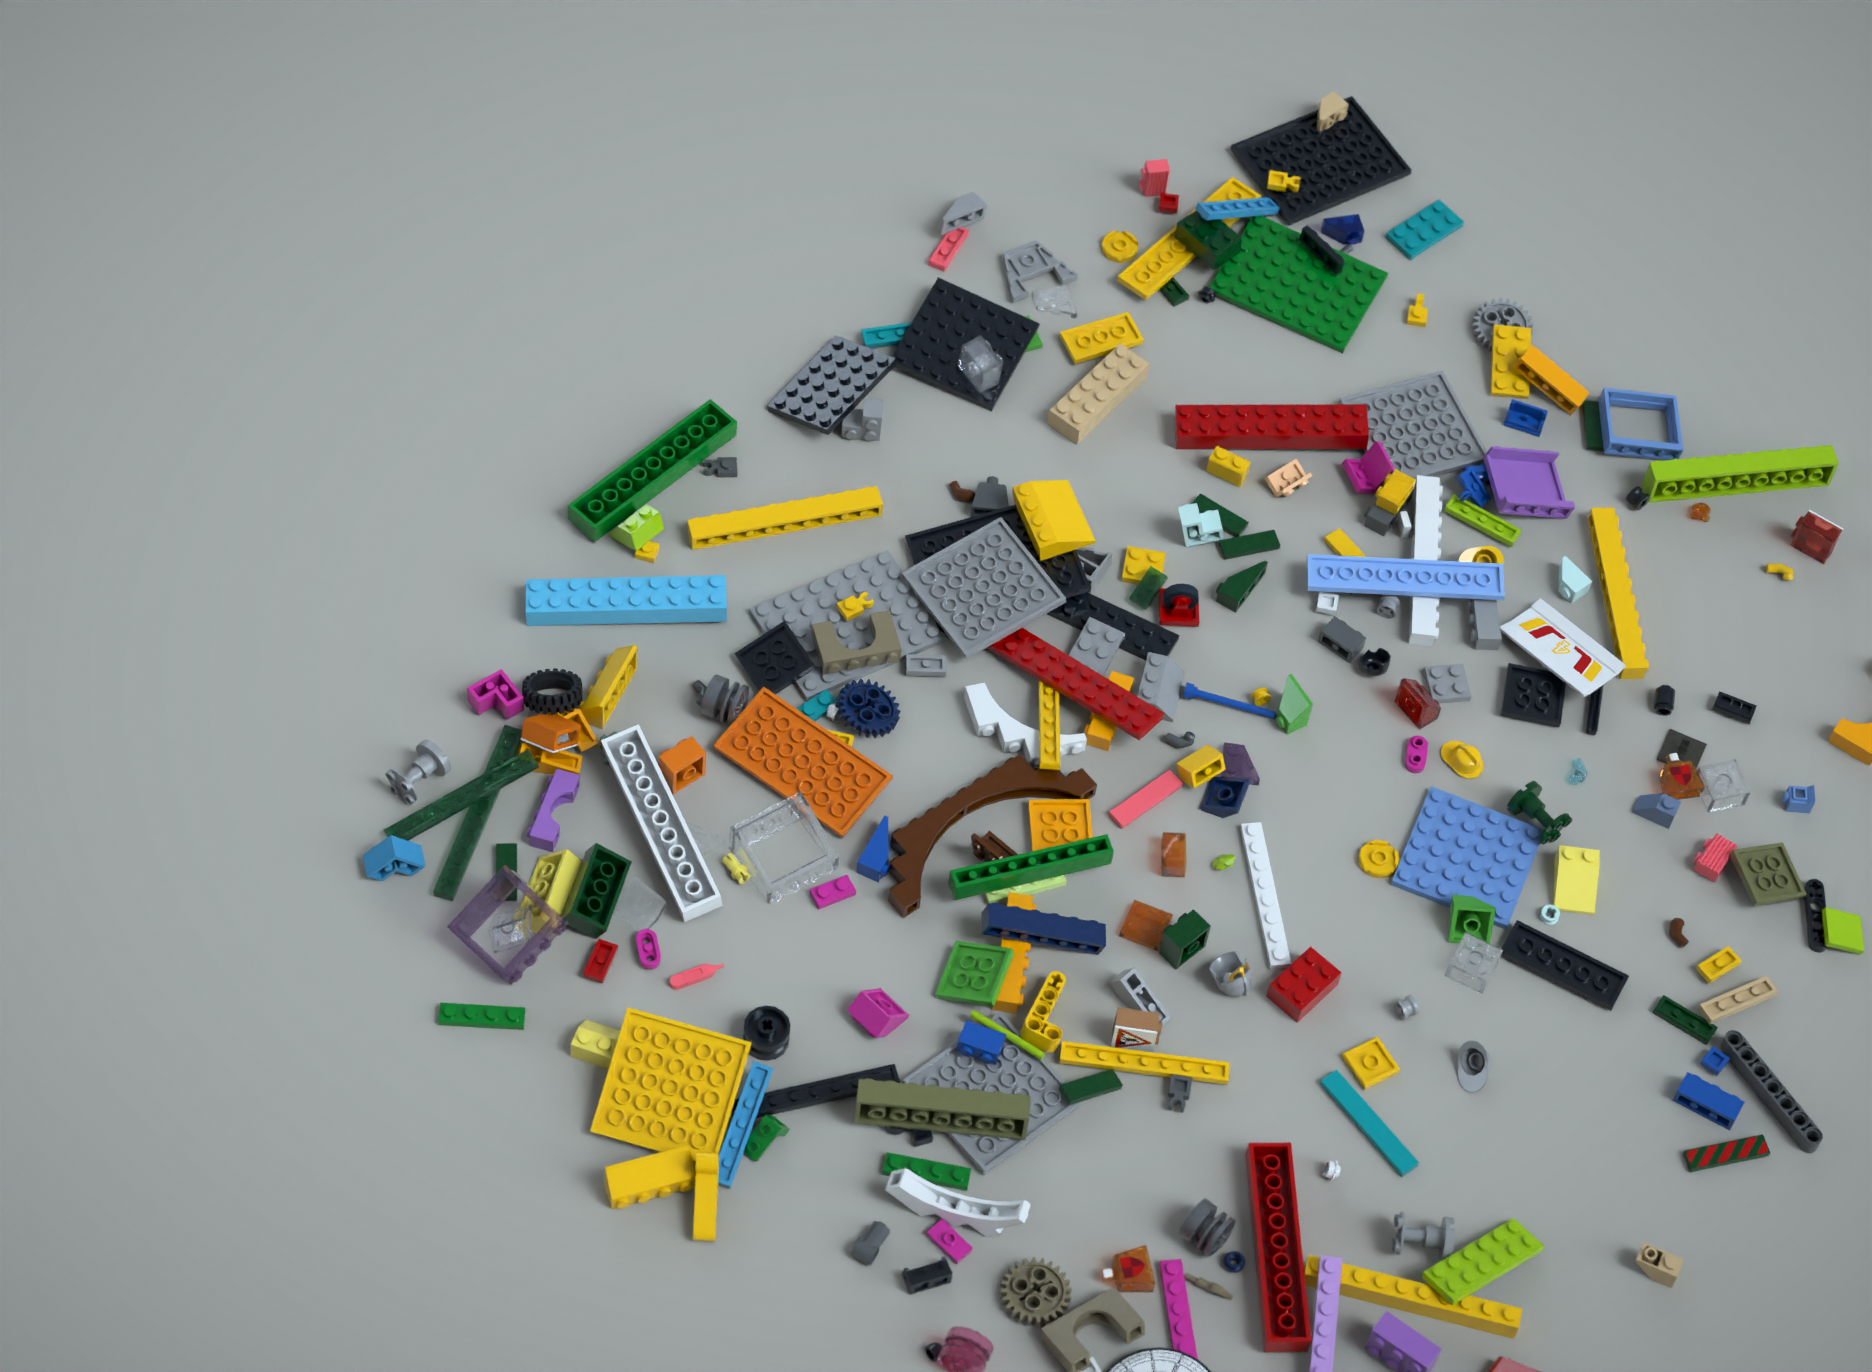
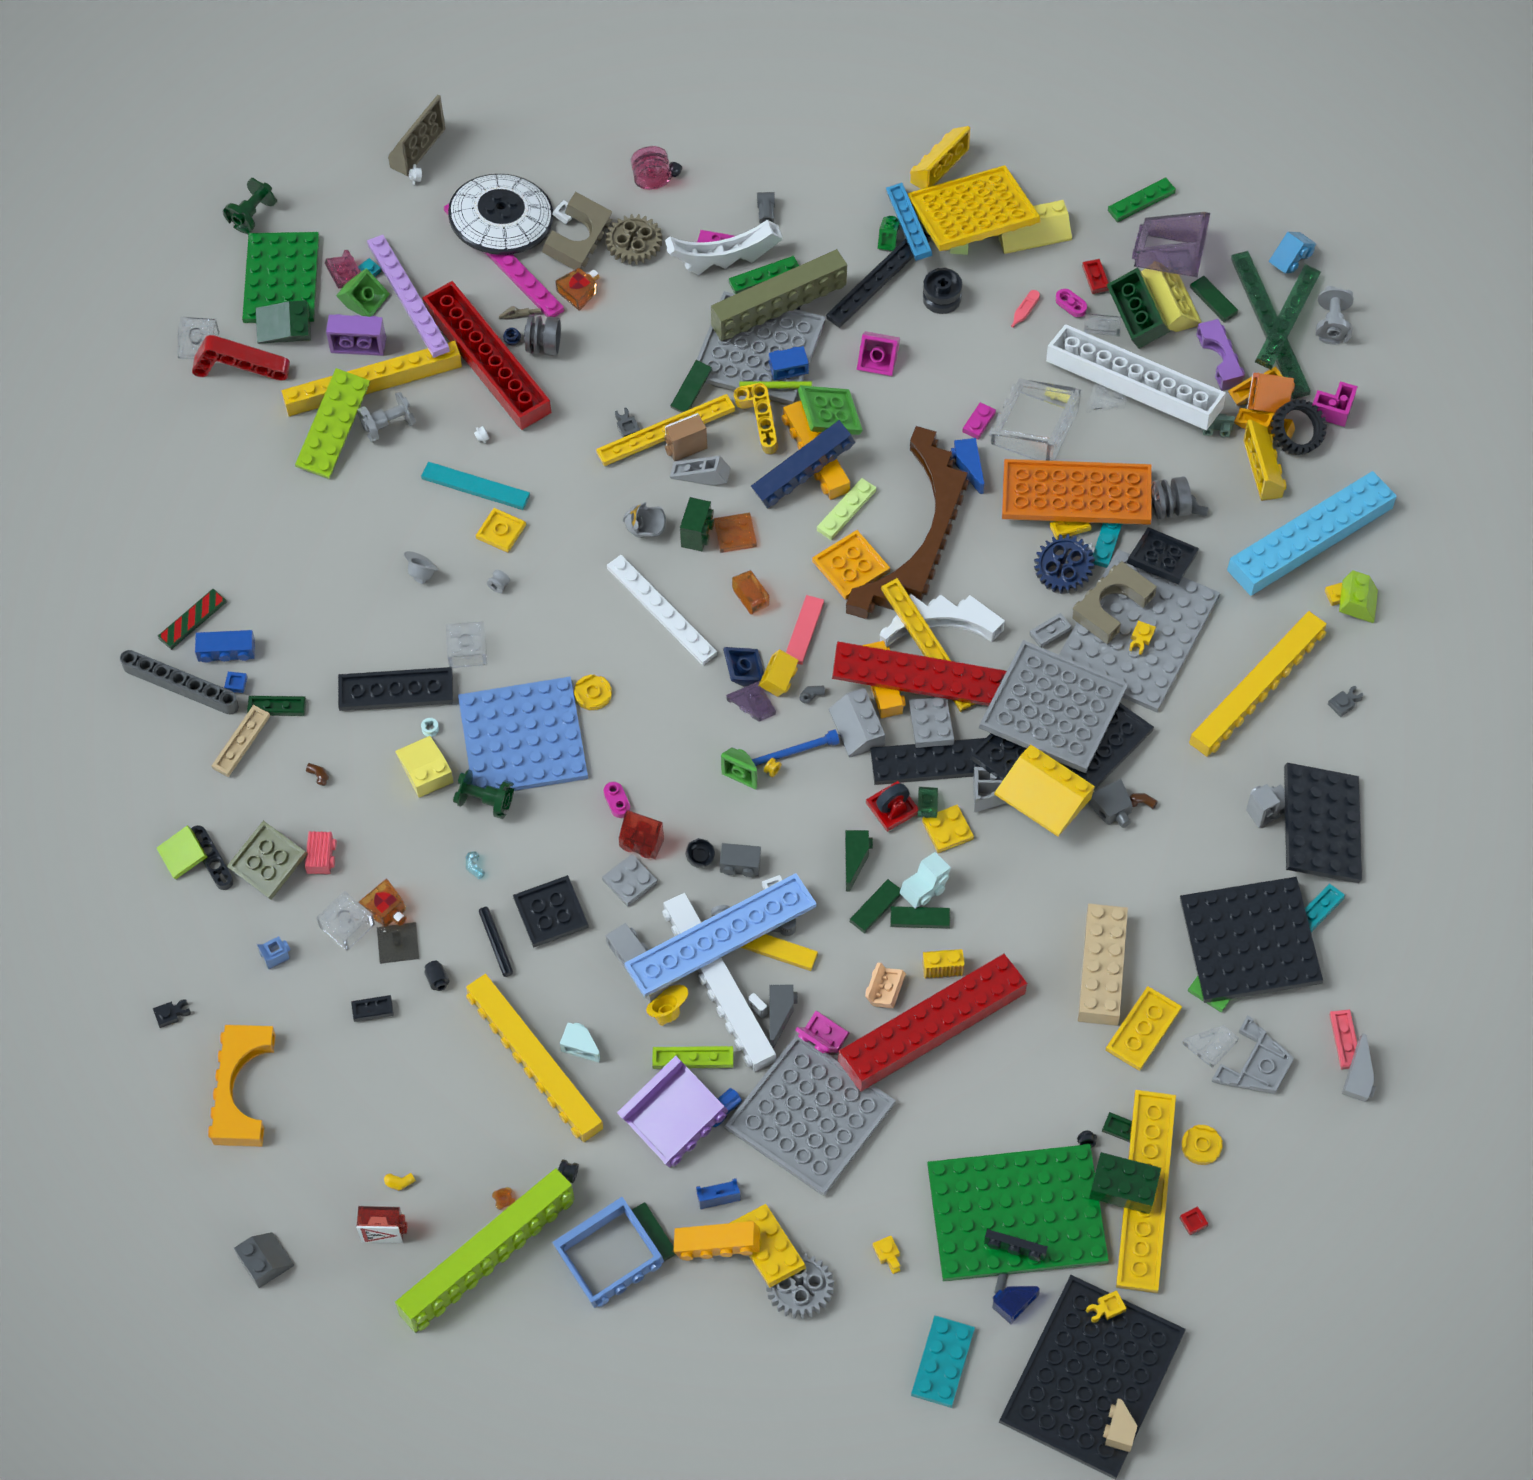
camera: 155 degrees right, 5 degrees up
(652, 470) = (1391, 653): green brick -> none
(682, 764) = (1160, 431): orange brick -> none
(706, 1196) = (901, 171): yellow beam -> none
(927, 1276) = (713, 209): black hinge -> none
(980, 364) = (1214, 902): clear brick -> none
(990, 847) = (885, 505): reddish brown bracket -> none
(1030, 867) = (845, 502): green brick -> none
(1154, 177) = (1224, 1228): coral brick -> none
(1223, 861) = (710, 613): lime plant -> none
(1237, 208) = (1120, 1228): dark azure plate -> none
(1303, 984) = (586, 551): red brick -> none
(1395, 491) = (781, 1013): yellow brick -> none
(1462, 759) = (577, 820): yellow piece -> none
(1470, 916) = (492, 674): bright green slope -> none
(1472, 488) = (719, 1076): blue plate -> none
(1563, 648) = (550, 959): white hinge -> none
(1657, 808) = (390, 867): sand blue slope -> none
(1659, 1264) = (201, 499): tan slope -> none
(1718, 964) = (271, 763): yellow plate -> none

